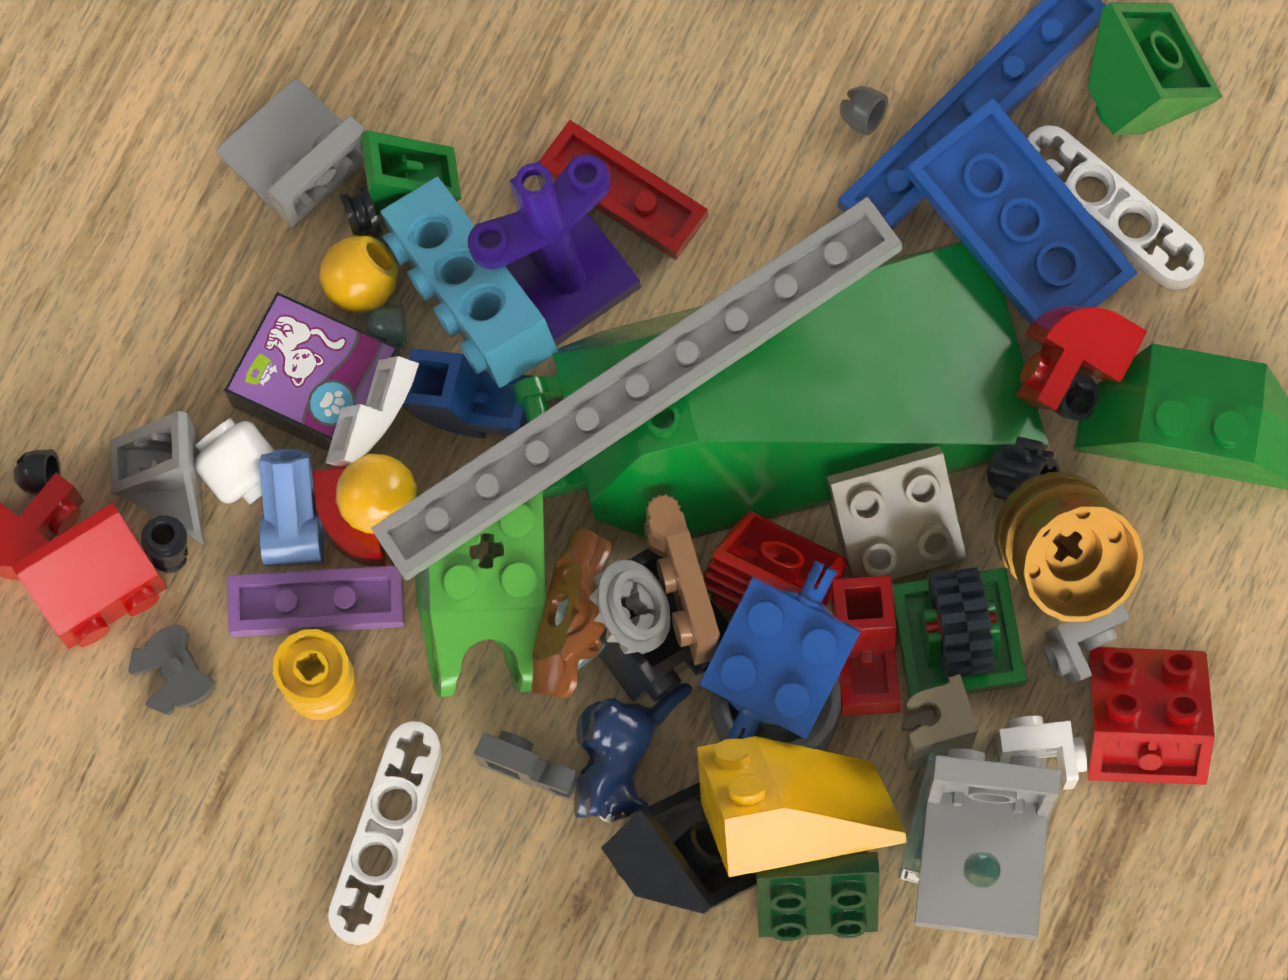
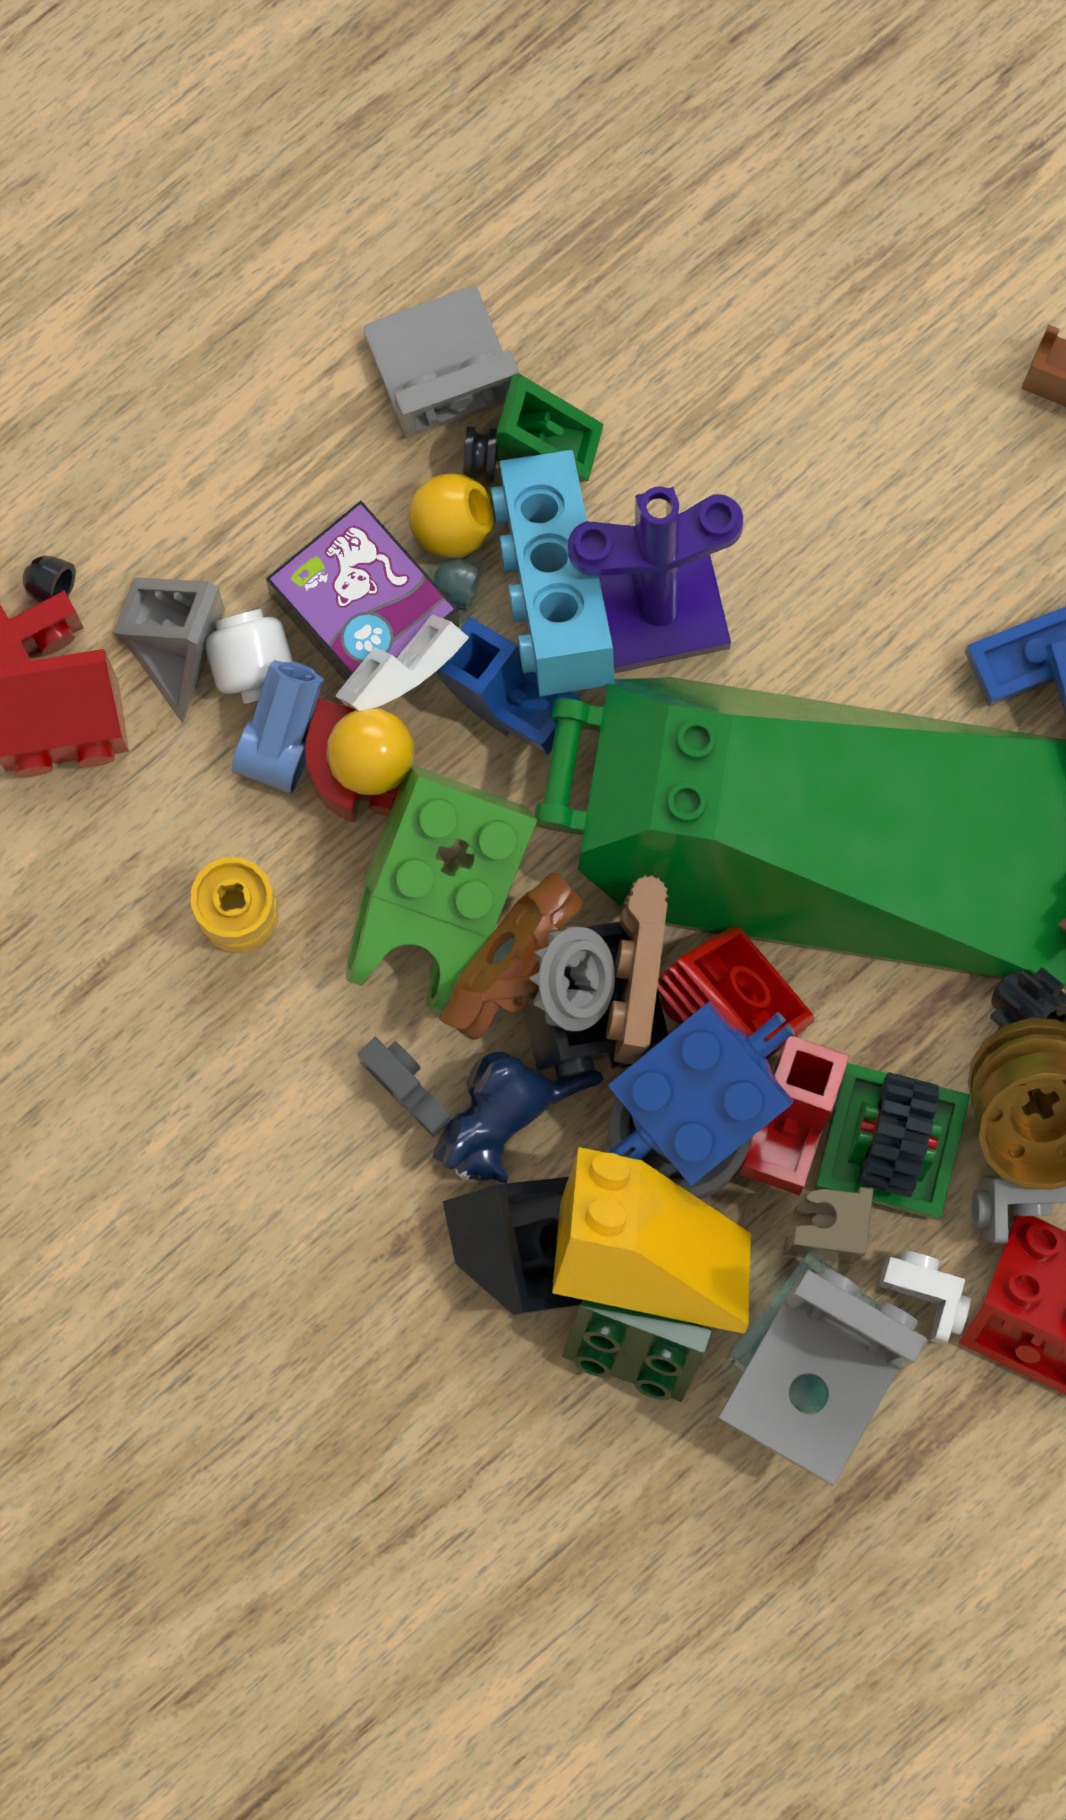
camera: 15 degrees right, 5 degrees up
(165, 542) = (138, 695): black pin -> none
(170, 652) = (103, 817): dark grey piece -> none
(315, 601) = (268, 830): medium lavender plate -> none
(392, 834) = (231, 1085): white beam -> none
(635, 195) = (765, 552): red plate -> none
(636, 389) = (675, 761): light grey plate -> none
(864, 109) = (1036, 563): dark grey hinge -> none
(897, 516) = (883, 996): dark tan plate -> none

